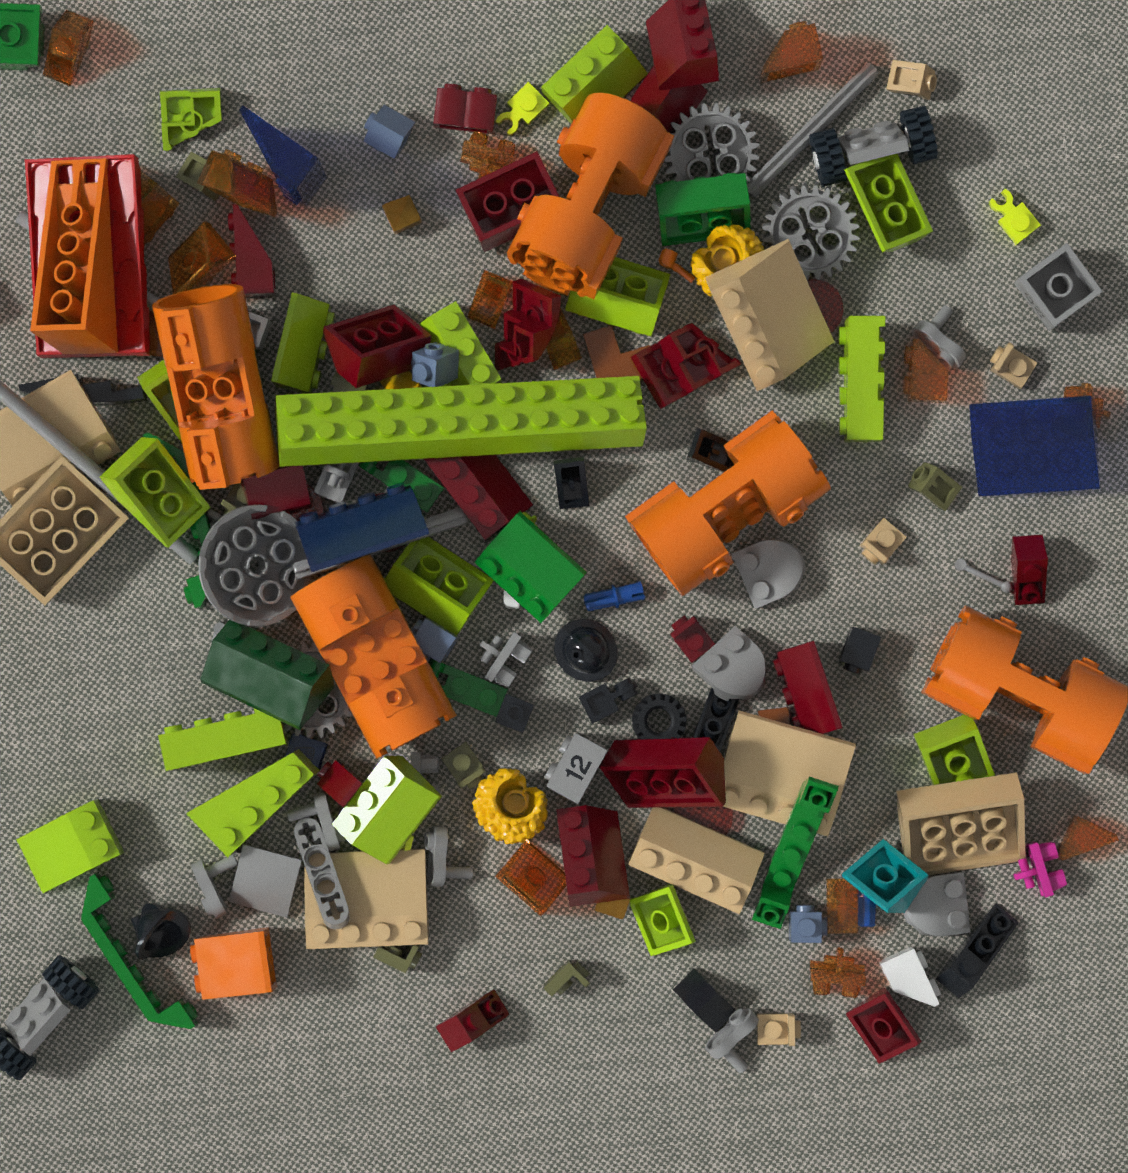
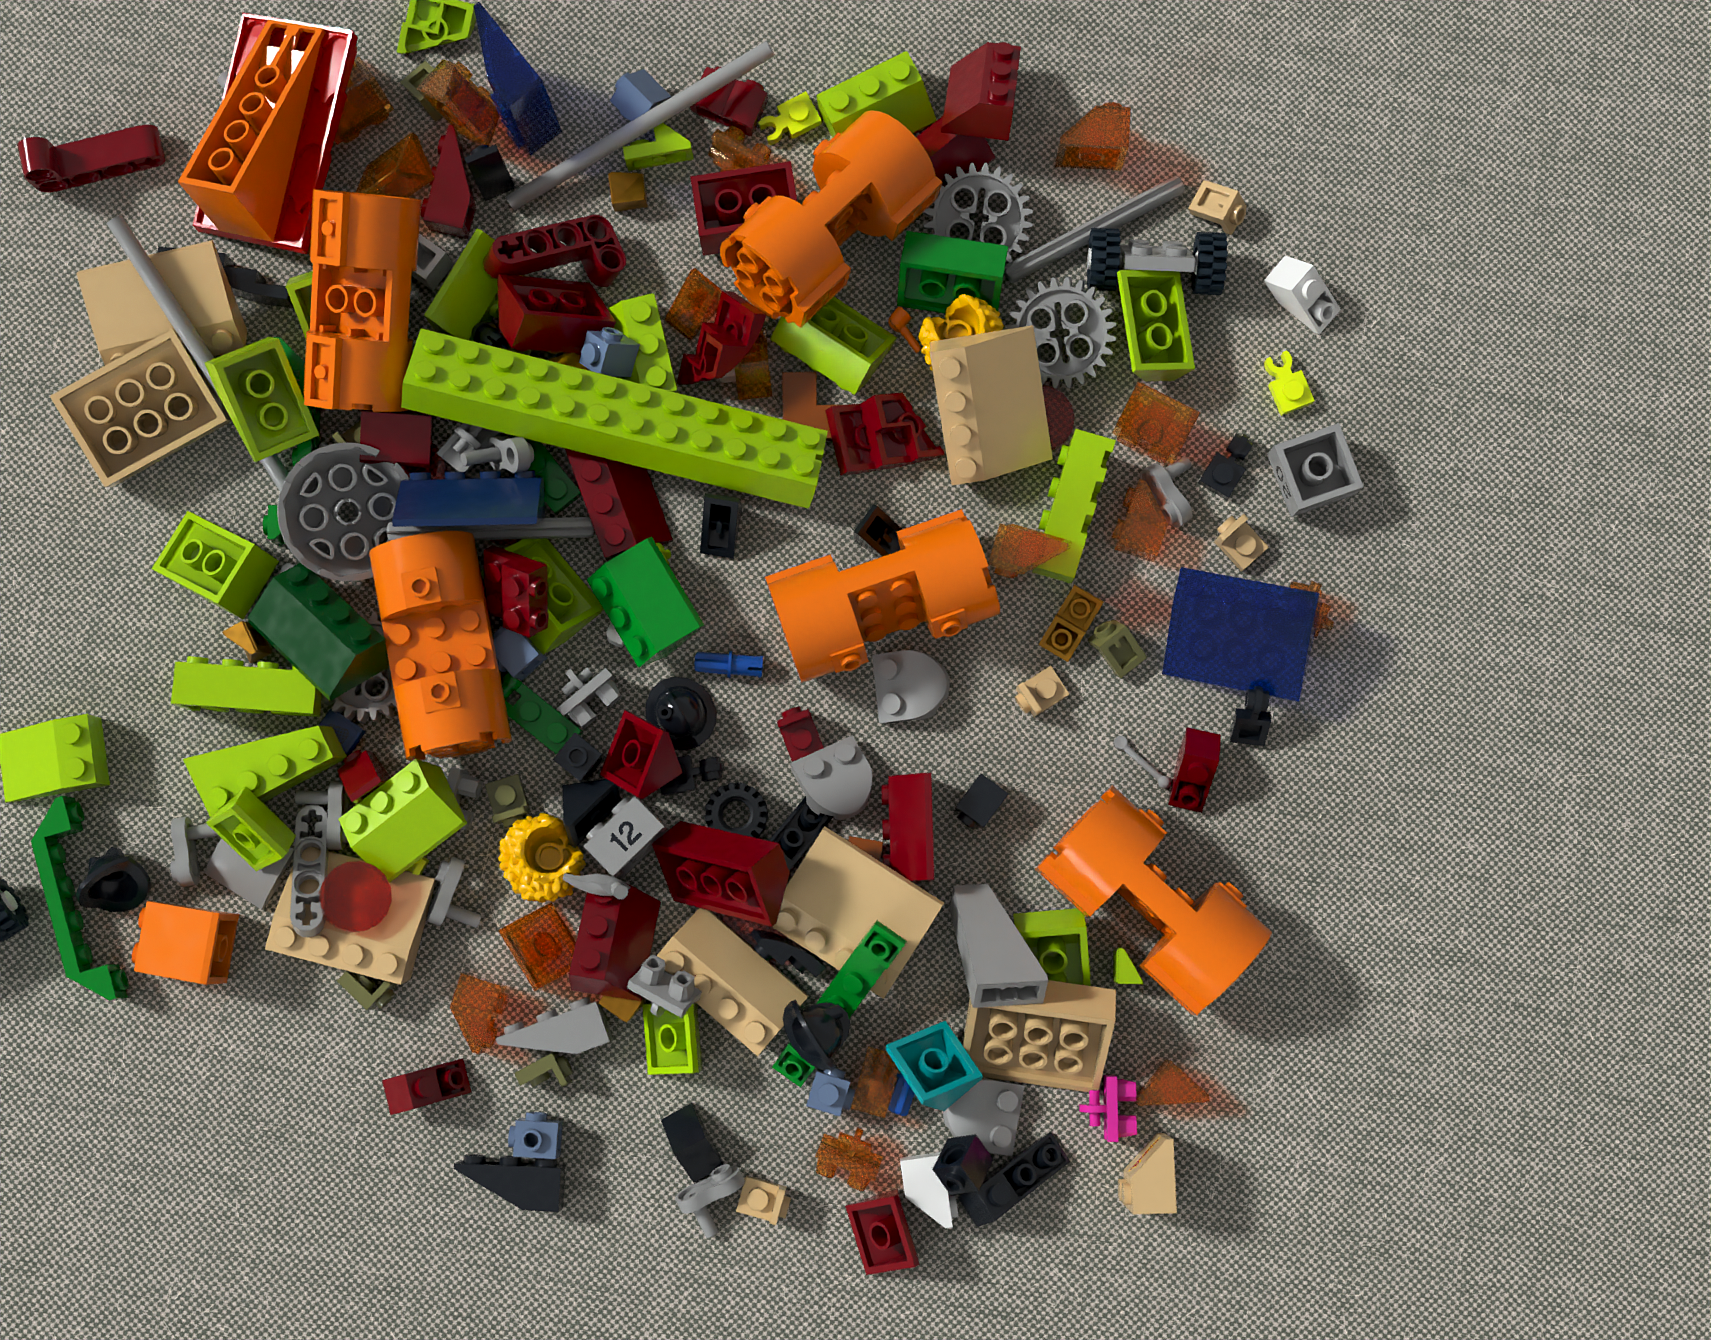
camera: 20 degrees right, 5 degrees down
(154, 641) = (215, 564): none -> lime slope
(206, 697) = (249, 639): none -> pearl gold slope
(265, 855) = (252, 830): none -> lime slope
(281, 235) = (489, 171): none -> black slope
(325, 379) = (487, 333): none -> black pin
(369, 884) = (355, 896): none -> clear red tile
(372, 477) = (503, 454): none -> light grey piece
(378, 275) = (512, 252): none -> dark red beam
(398, 158) = (640, 125): none -> light grey piece
(422, 591) = (516, 590): none -> dark red plate
(425, 166) = (667, 149): none -> lime slope
(493, 943) = (476, 1009): none -> clear orange slope
(534, 751) = (586, 806): none -> black slope
(567, 698) = (640, 757): none -> dark red slope
(568, 814) = (599, 884): none -> light grey bar
(575, 1034) = (536, 1136): none -> sand blue brick
(576, 941) = (566, 1033): none -> light grey slope
(577, 1075) = (525, 1185): none -> black slope
(648, 883) = (665, 990): none -> light grey hips
(733, 821) = (780, 948): none -> black slope
(782, 880) = (816, 1031): none -> black helmet
(837, 431) = (1022, 549): none -> clear orange slope
(890, 476) = (1071, 623): none -> pearl gold slope
(907, 771) = (993, 952): none -> light grey slope
(912, 288) = (1155, 423): none -> clear orange slope
(933, 951) = (963, 1164): none -> black brick
(980, 310) = (1222, 472): none -> black plate
(1004, 135) = (1302, 293): none -> white slope
(1017, 752) = (1123, 968): none -> lime slope
(1066, 516) = (1253, 722): none -> black plate
(1088, 916) = (1150, 1179): none -> tan slope

